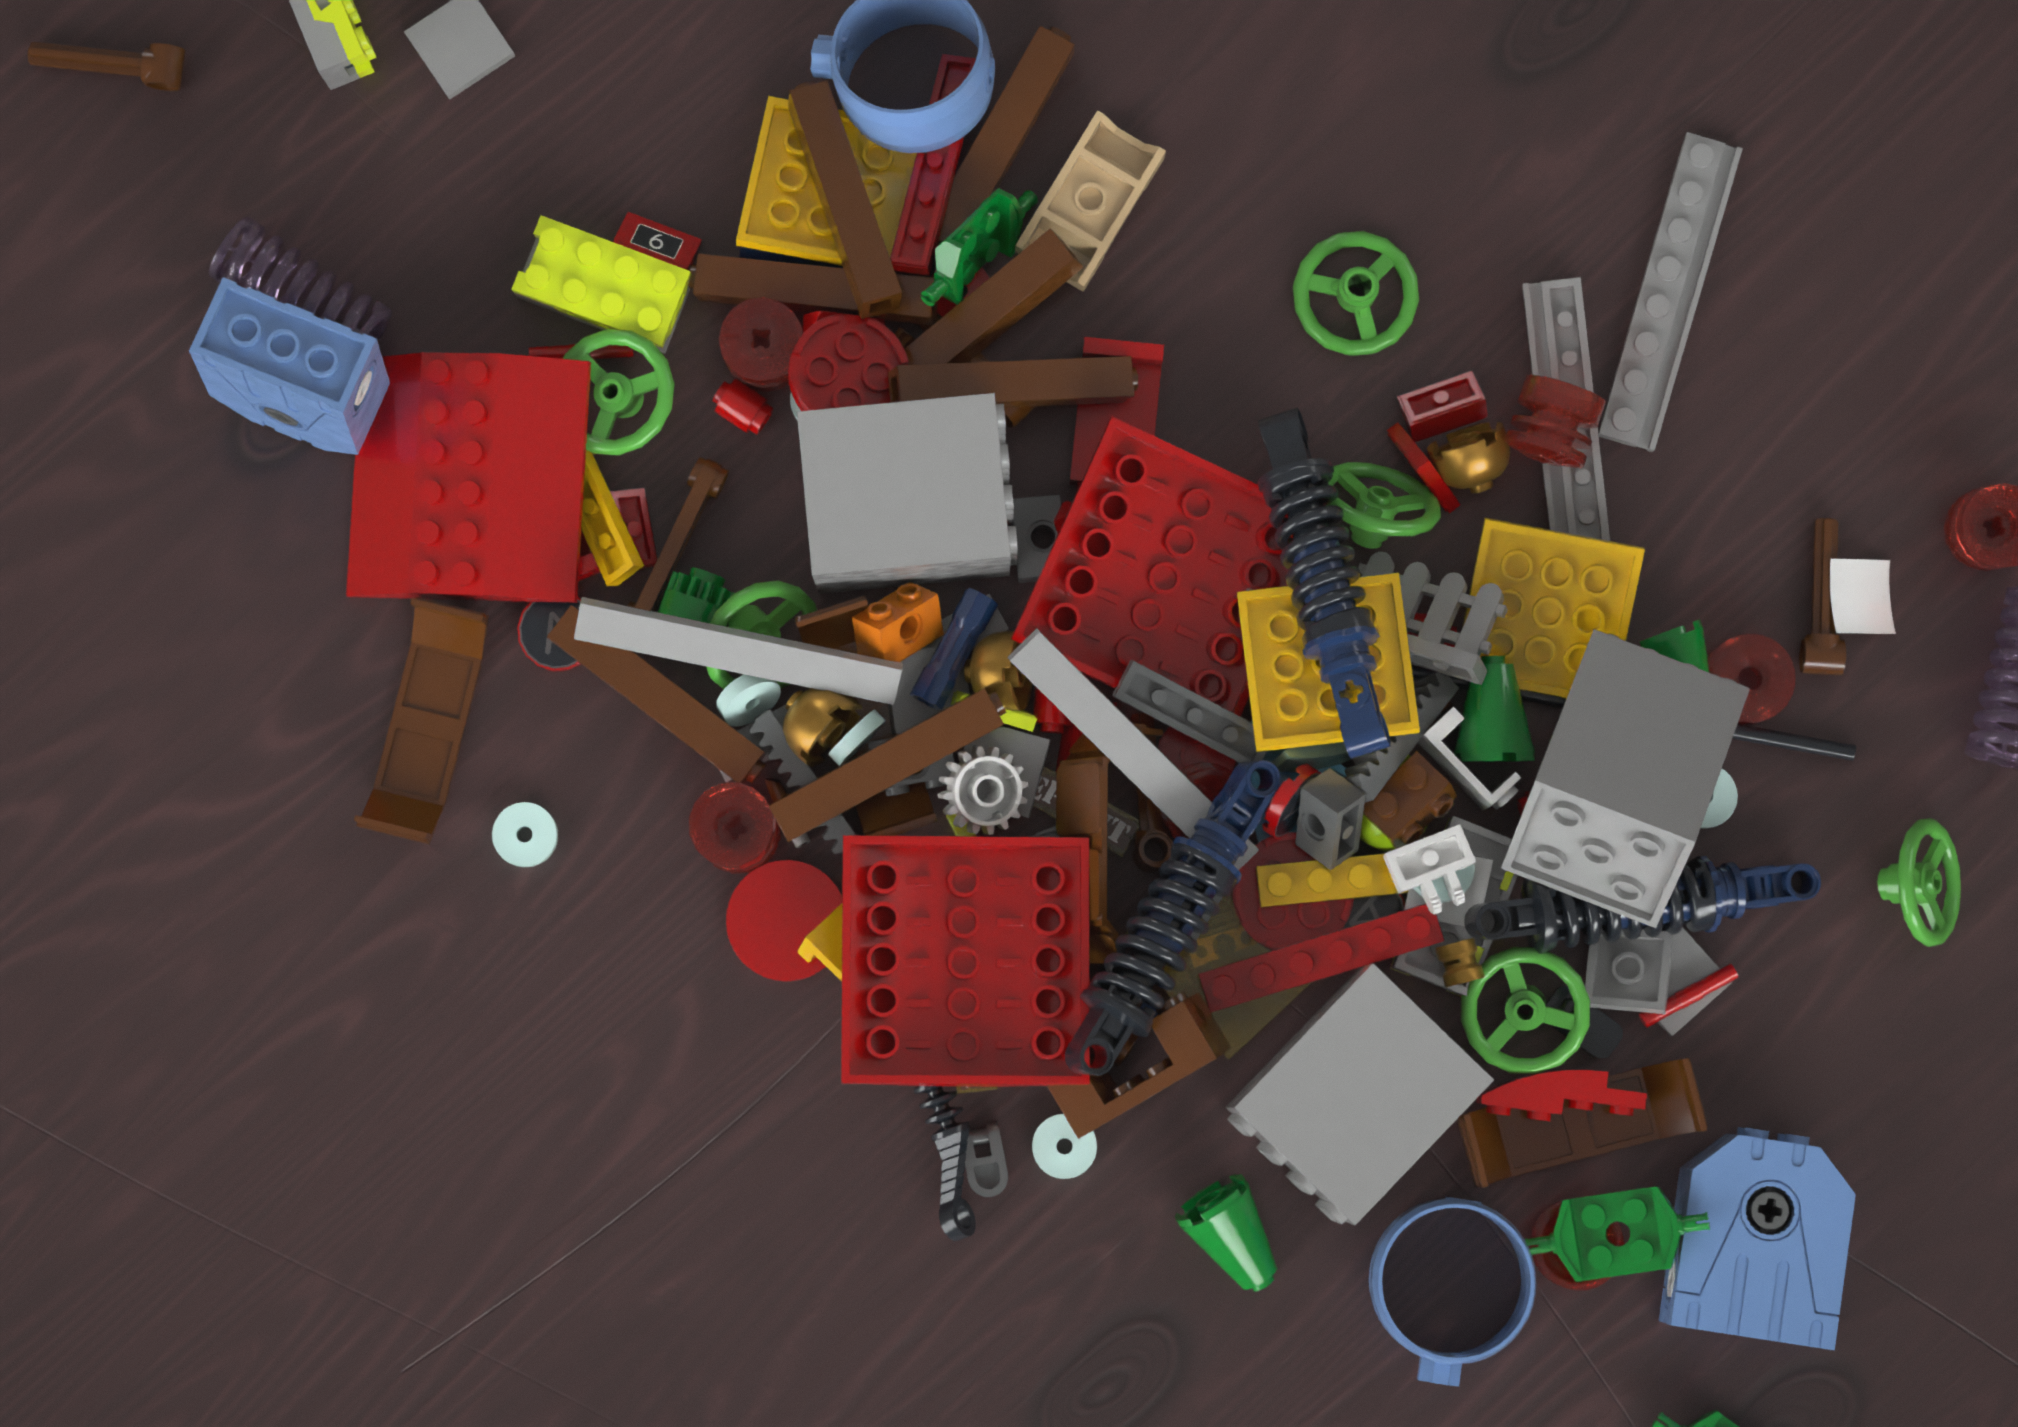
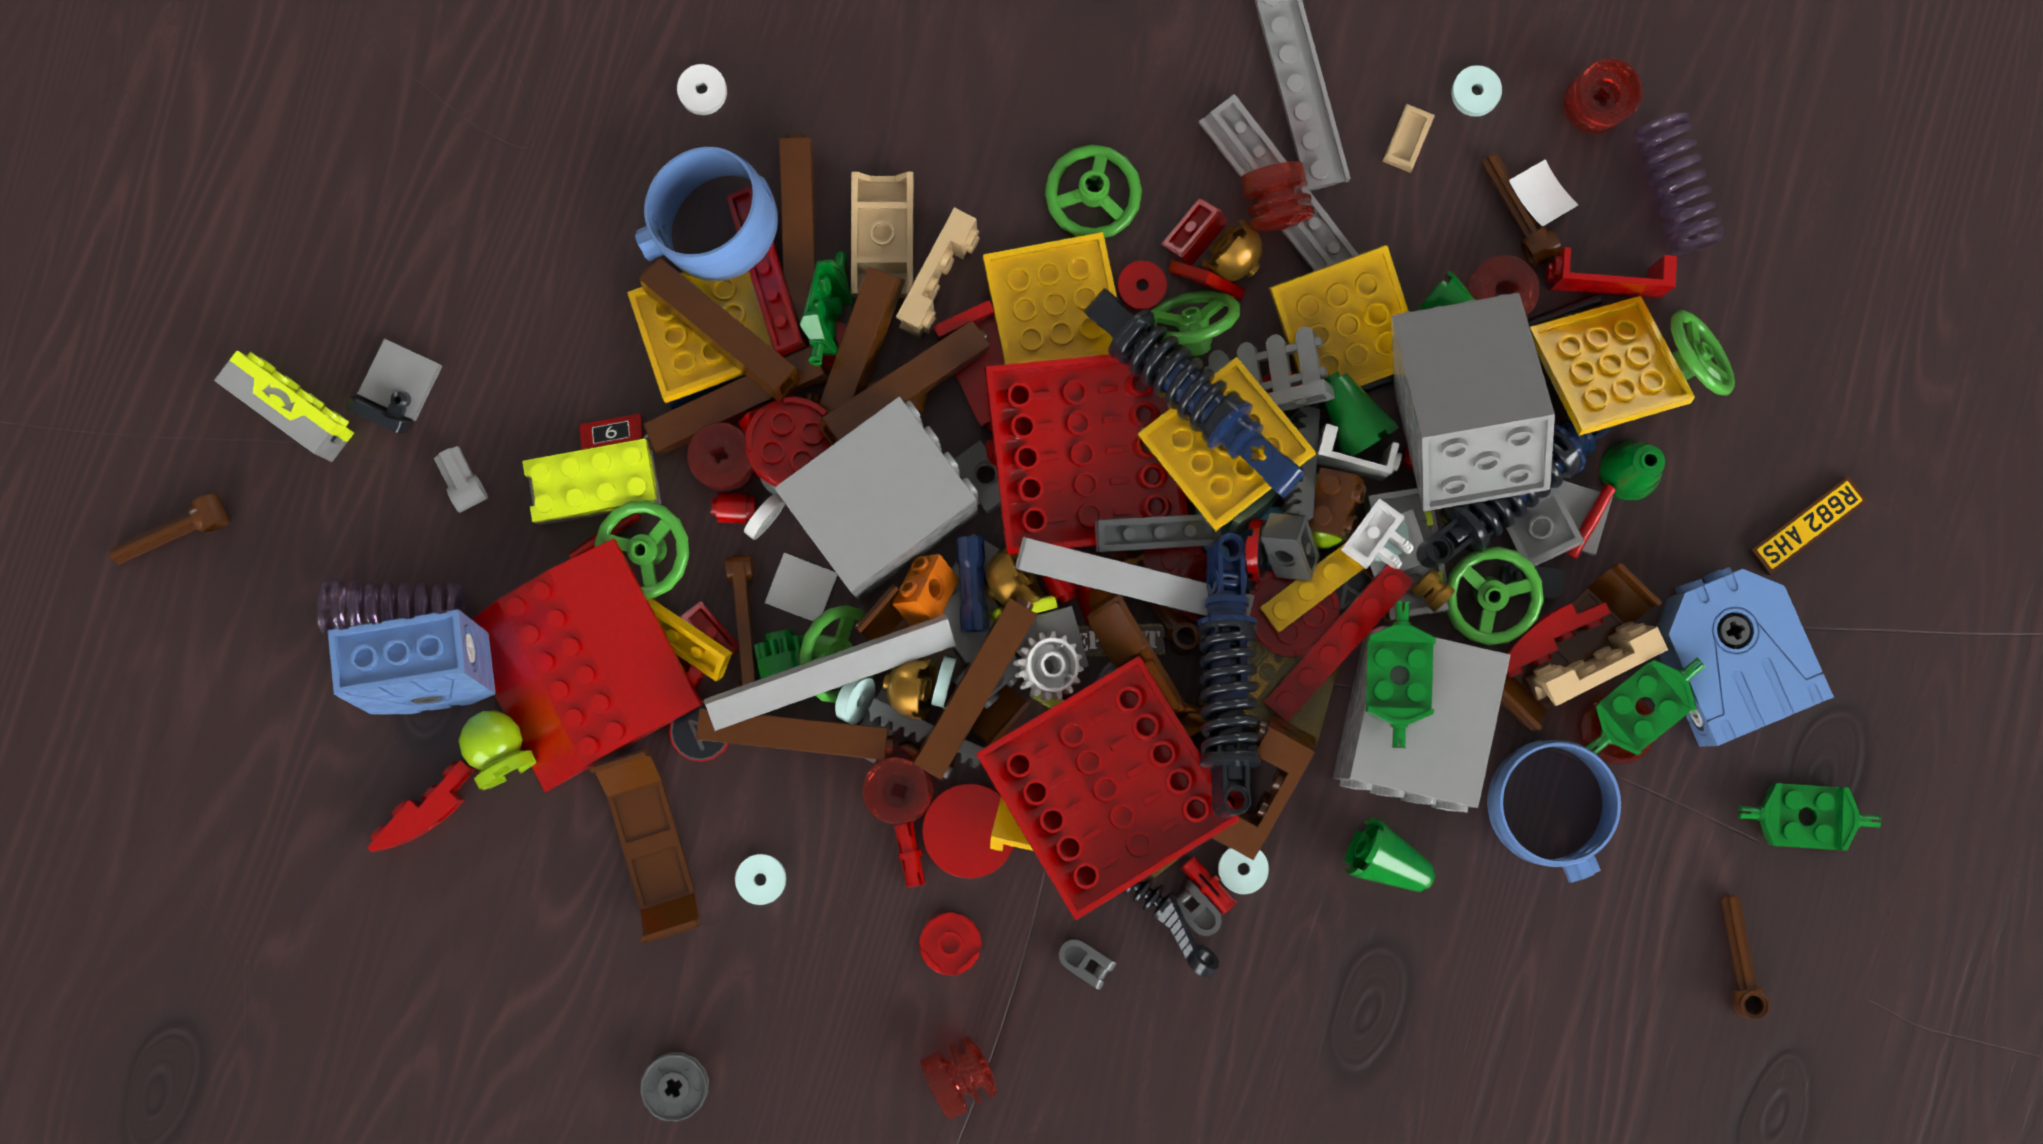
camera: 30 degrees left, 0 degrees up
(187, 540) = (417, 818): none -> red slope
(278, 986) = (668, 1104): none -> dark grey wheel
(320, 510) = (493, 746): none -> lime tile
(422, 79) = (388, 417): none -> black piece
(459, 205) = (463, 487): none -> light grey piece
(611, 1182) = (959, 1077): none -> clear red wheel
(690, 1032) = (950, 943): none -> red tile
(705, 906) = (909, 854): none -> red pin
(763, 539) = (801, 587): none -> white sticker
(769, 436) = (764, 516): none -> white piece
(820, 1128) = (1076, 954): none -> dark grey plate
(1010, 1112) = (1193, 869): none -> red pin
(1172, 254) = (956, 239): none -> tan piece
(1226, 375) = (1043, 295): none -> yellow plate
(1356, 415) = (1145, 272): none -> red piece
(1386, 1007) = (1412, 650): none -> green plate
(1647, 1160) = (1630, 647): none -> tan piece
(1748, 443) = (1408, 138): none -> tan tile
(1759, 967) = (1632, 469): none -> green cone
(1815, 833) = (1610, 365): none -> yellow plate
(1873, 425) = (1478, 77): none -> light aqua piece
(1921, 778) = (1659, 281): none -> red panel
(1933, 1148) = (1808, 525): none -> tile

